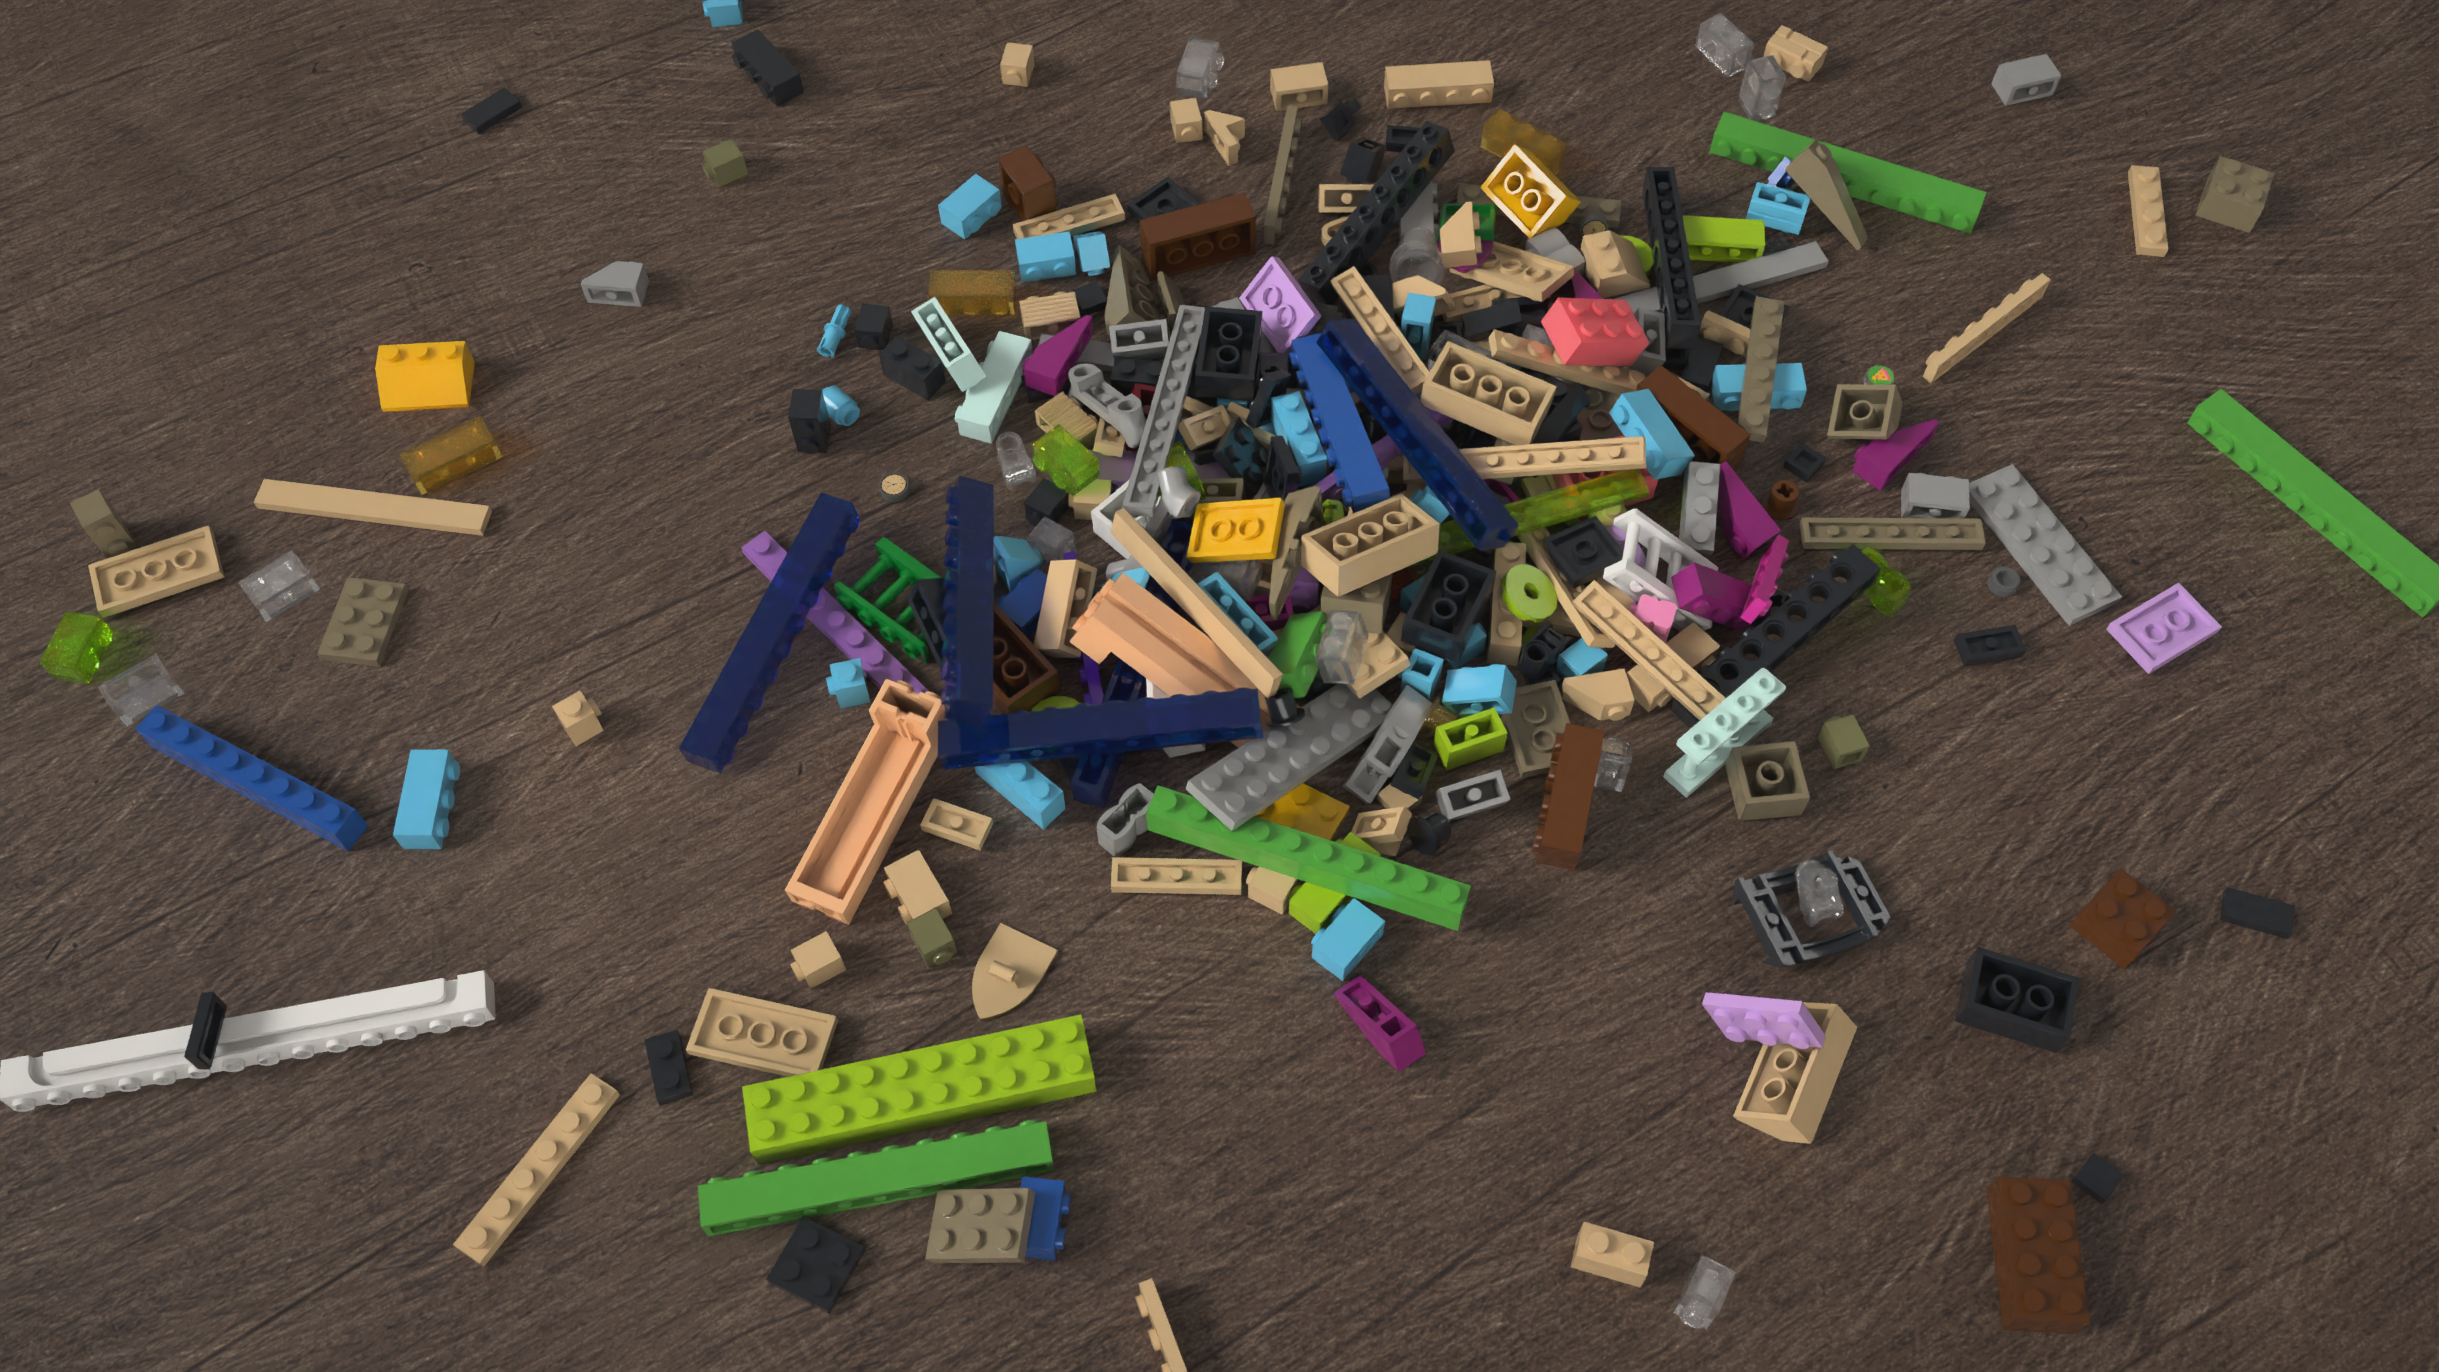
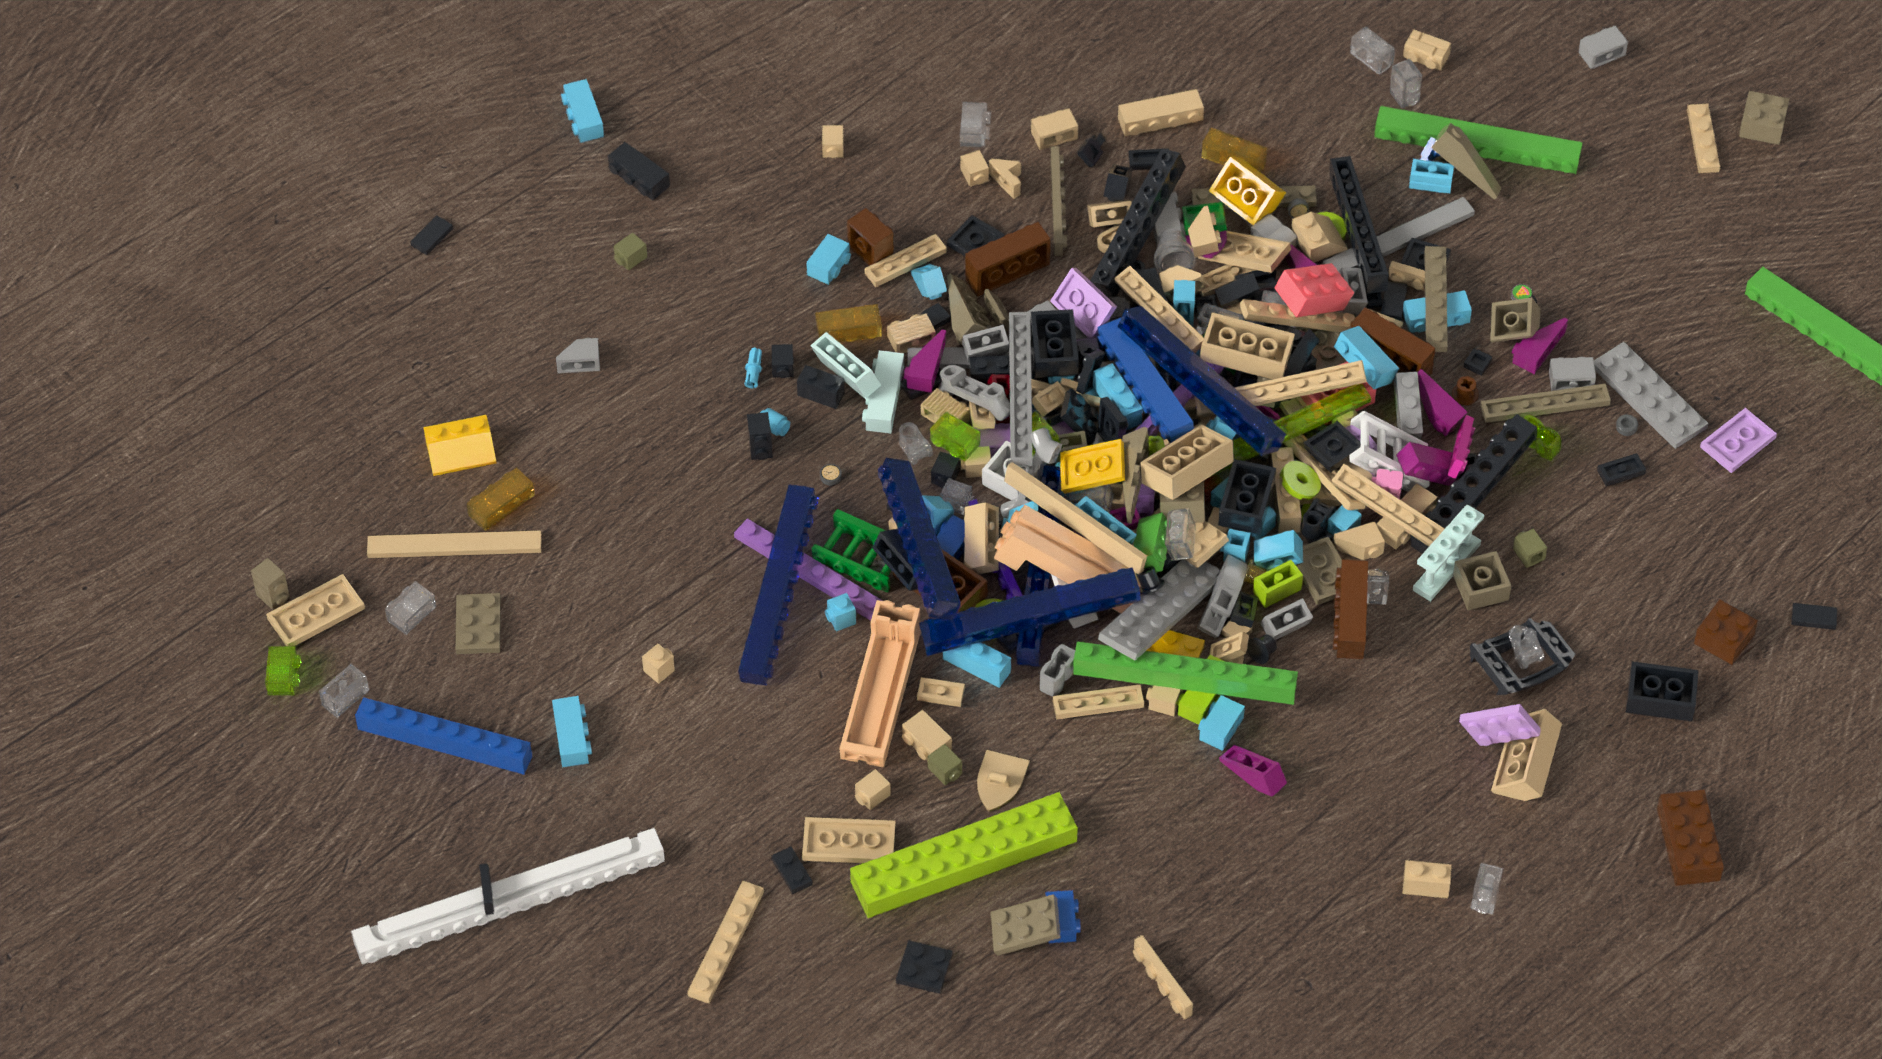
camera: 10 degrees left, 5 degrees down
(874, 1178) = (948, 910): bright green brick -> none
(1045, 257) = (895, 290): medium azure brick -> none
(1724, 238) = (1395, 204): lime brick -> none
(1992, 322) = (1598, 240): tan plate -> none
(2097, 1178) = (1725, 790): black tile -> none

